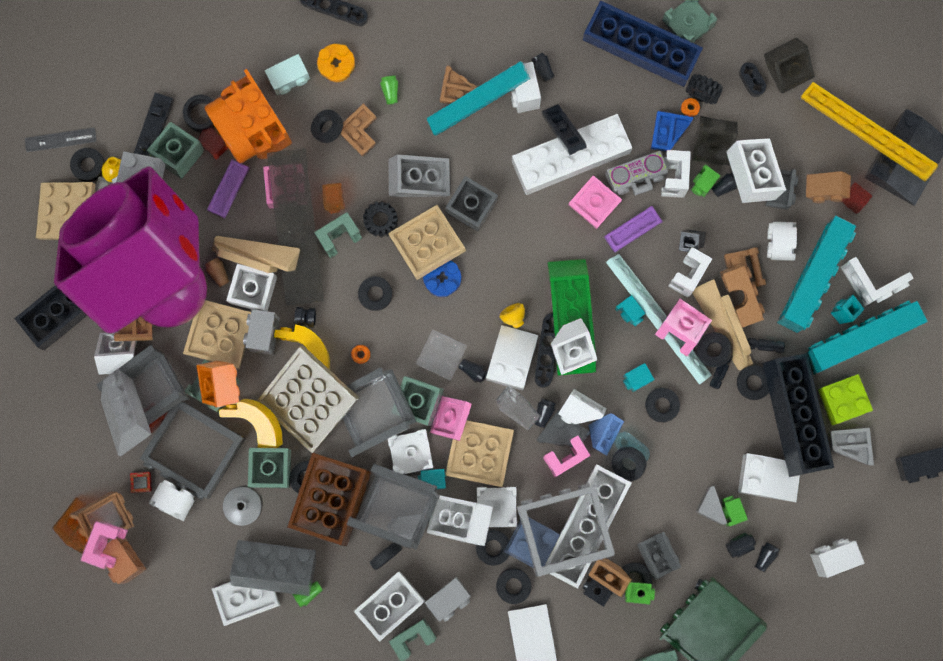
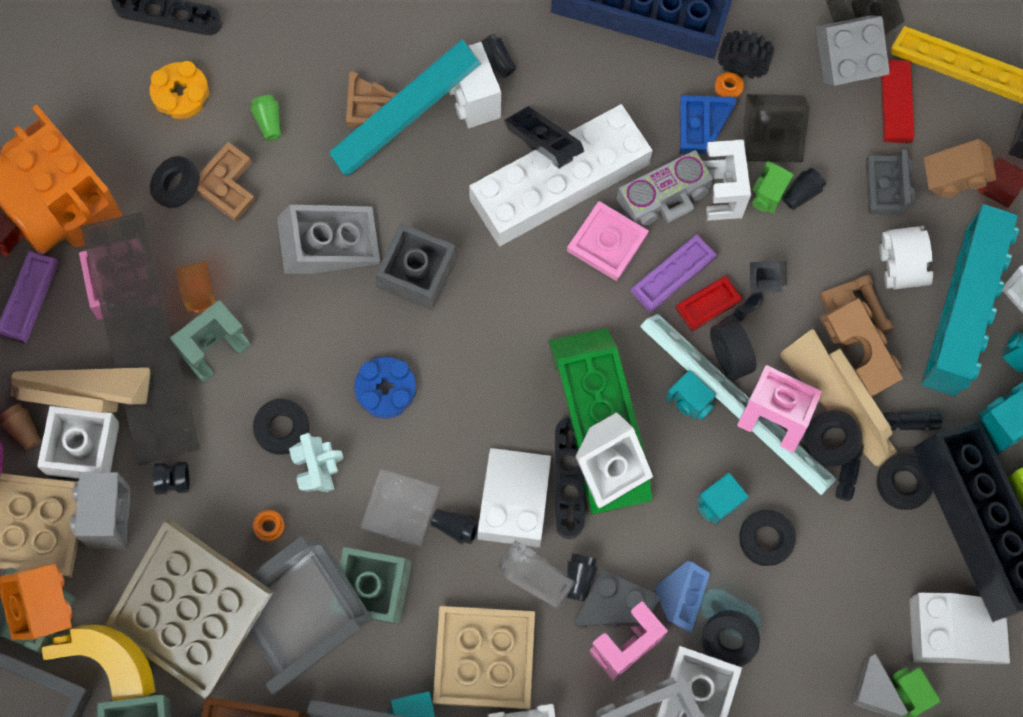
camera: 15 degrees left, 10 degrees down
(287, 75) = (105, 115): light aqua brick -> none
(308, 339) = (176, 508): yellow arch -> none
(374, 209) = (275, 293): black tyre -> none
(396, 319) = (320, 463): none -> light aqua hips
(411, 452) = (370, 673): white panel -> none
(427, 242) = (353, 334): tan plate -> none
(450, 418) = (429, 606): bright pink plate -> none
(513, 315) = (507, 429): yellow brick -> none
(581, 409) = (637, 561): white slope -> none
(652, 251) = (708, 303): none -> red tile
(661, 285) = (733, 349): none -> black tyre
(670, 261) = (750, 305): none -> black piece
(698, 263) = (785, 319): white panel -> none
(748, 81) = (806, 36): black beam -> none
(756, 170) = (847, 157): white brick -> none
(774, 96) = (852, 50): none -> light grey brick
(798, 132) = (897, 103): none -> red tile

